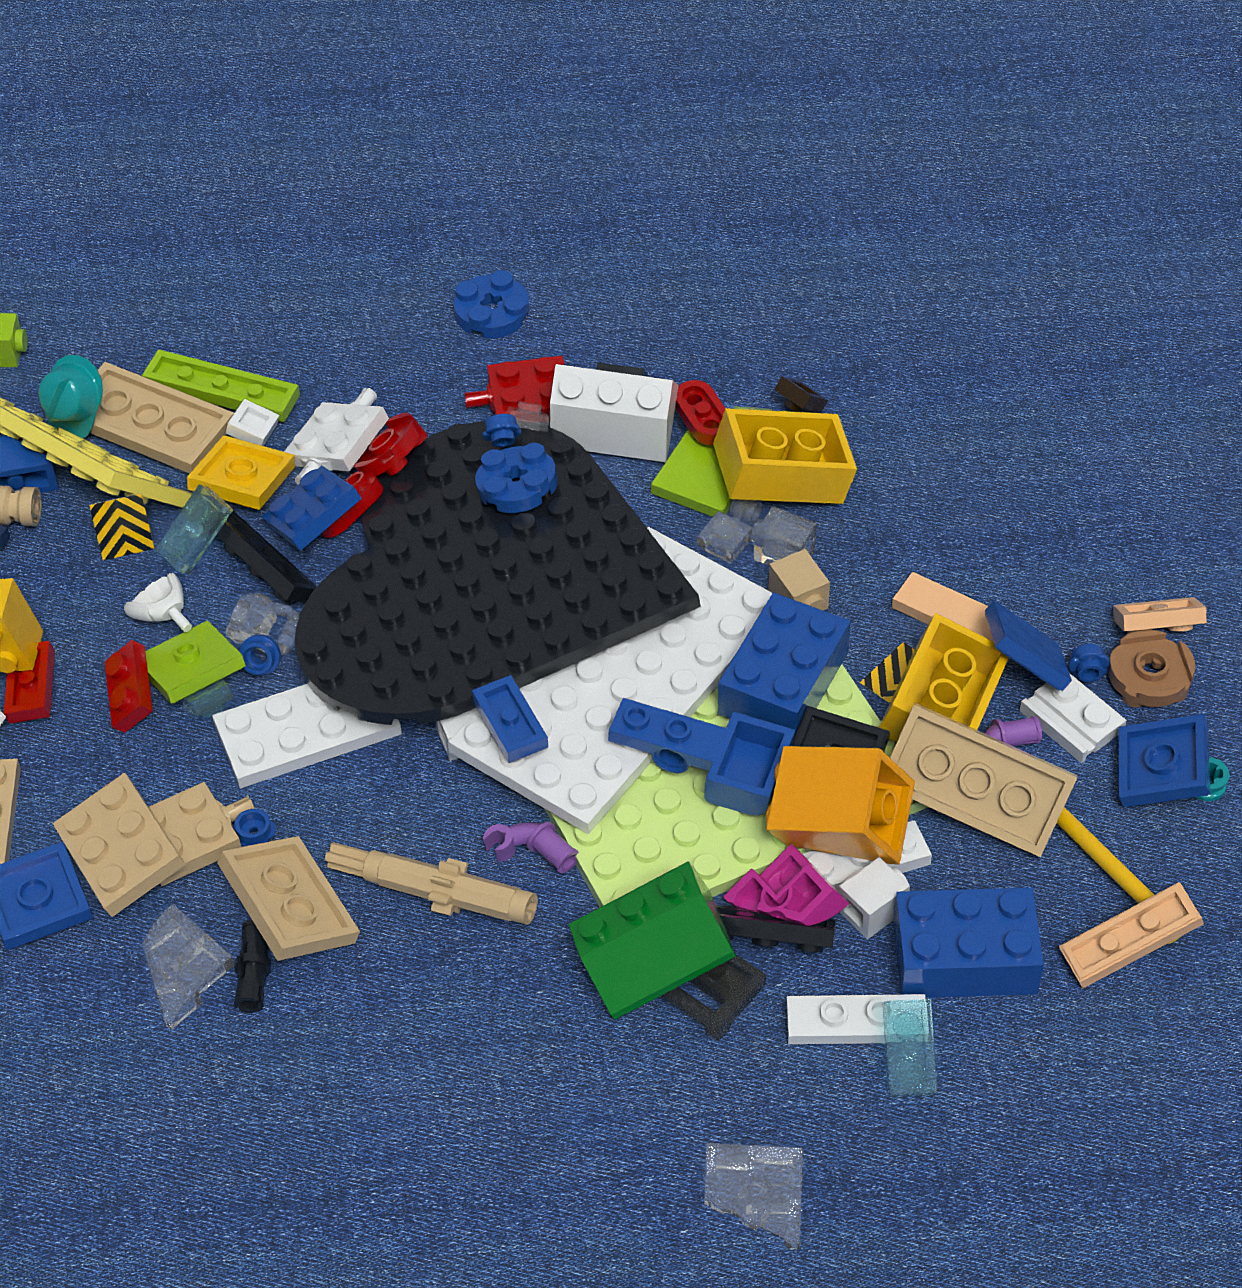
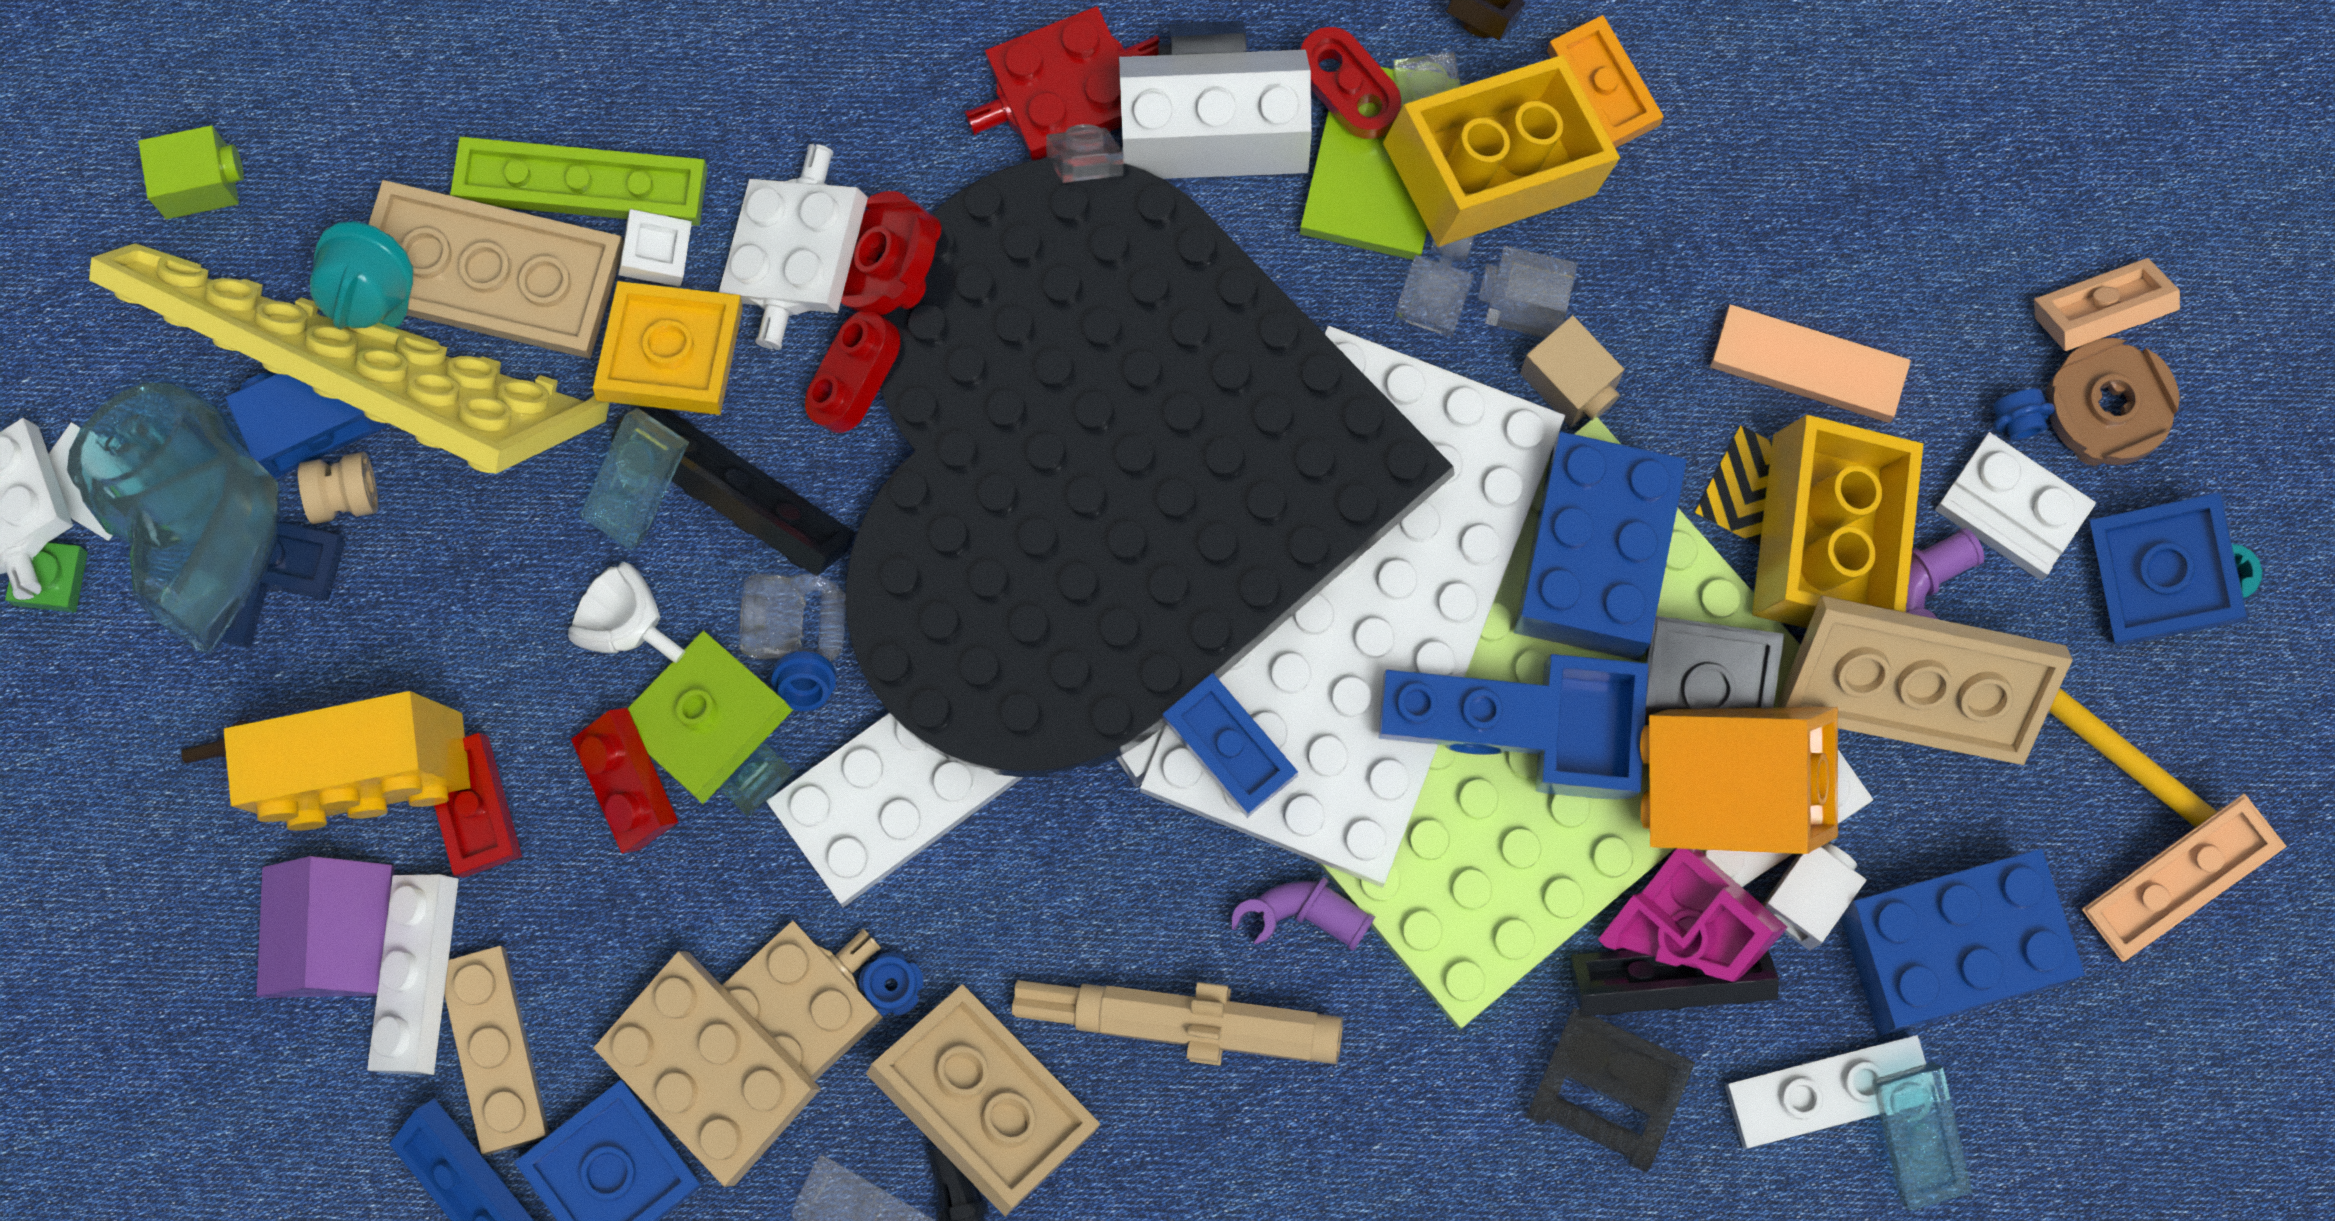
camera: 15 degrees left, 25 degrees up
(121, 526) = (520, 500): sticker -> none
(311, 507) = (802, 400): blue plate -> none
(501, 430) = (1059, 202): blue plate -> none
(529, 463) = (1104, 255): blue plate -> none
(652, 940) = (1533, 1063): green slope -> none
(868, 447) = (1608, 80): none -> light orange plate
(1027, 646) = (1940, 423): blue tile -> none

